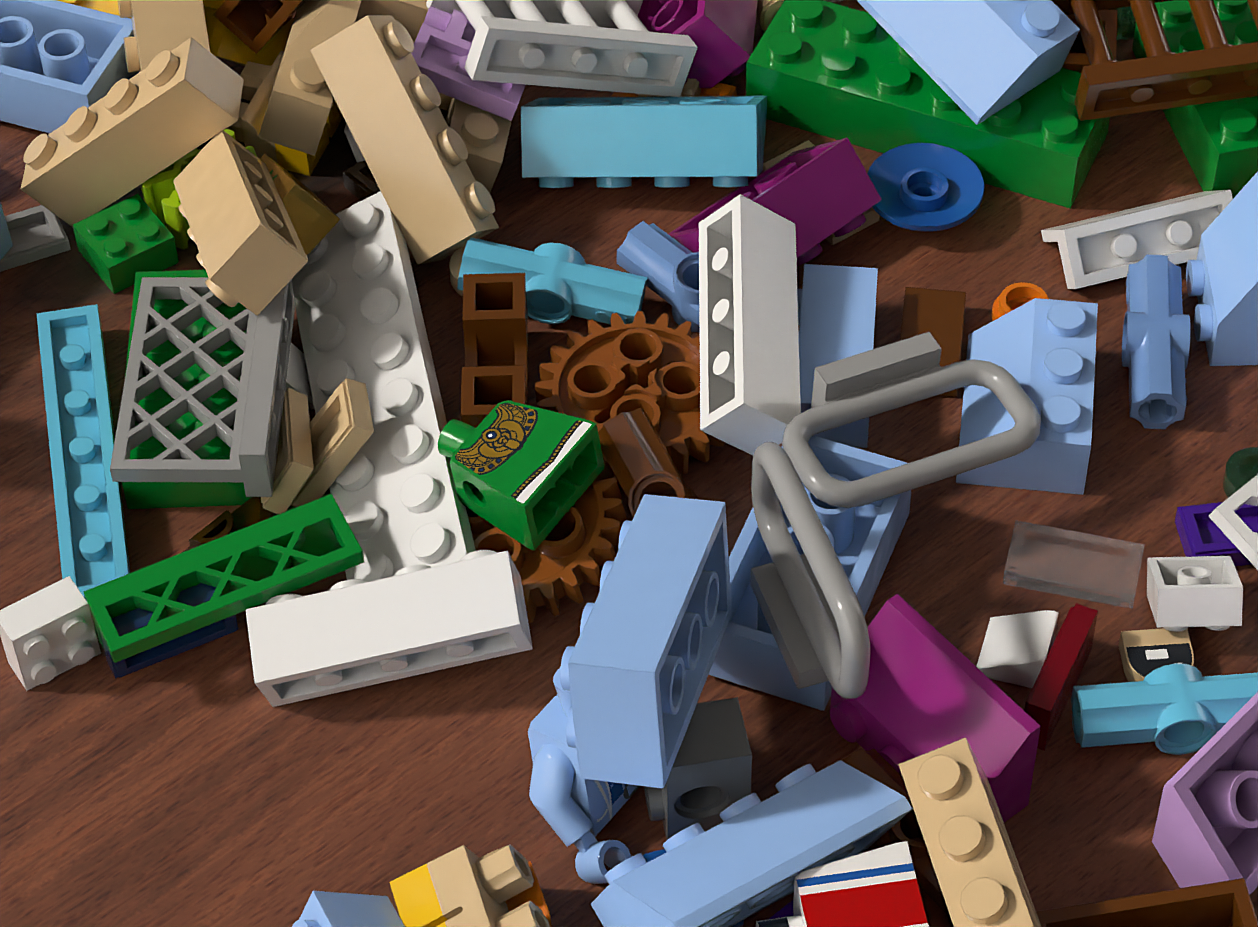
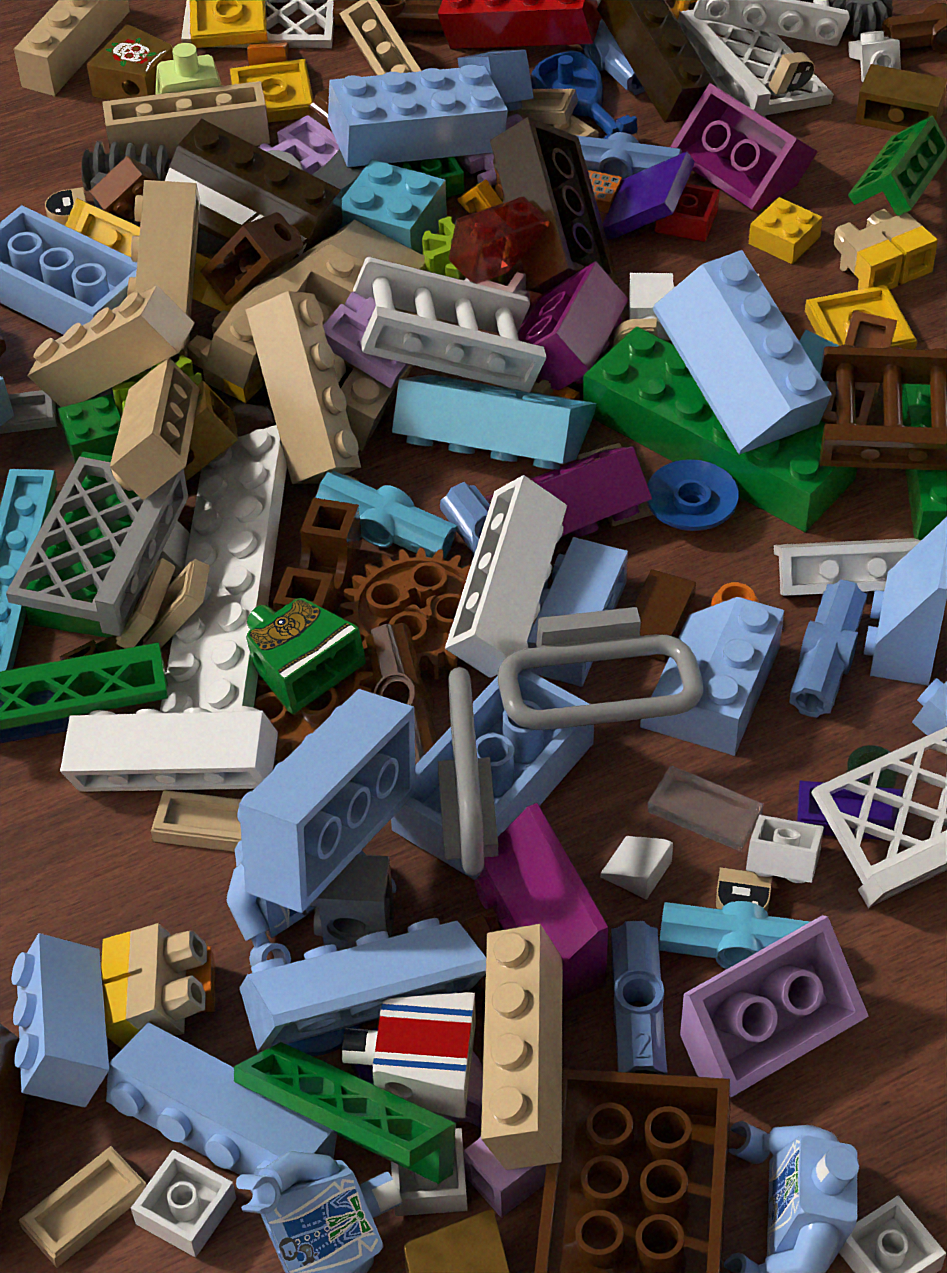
camera: 15 degrees right, 0 degrees up
(457, 709) = (197, 821): none -> tan tile
(1061, 670) = (662, 885): dark red tile -> none
(1073, 786) = (638, 978): none -> medium blue piece

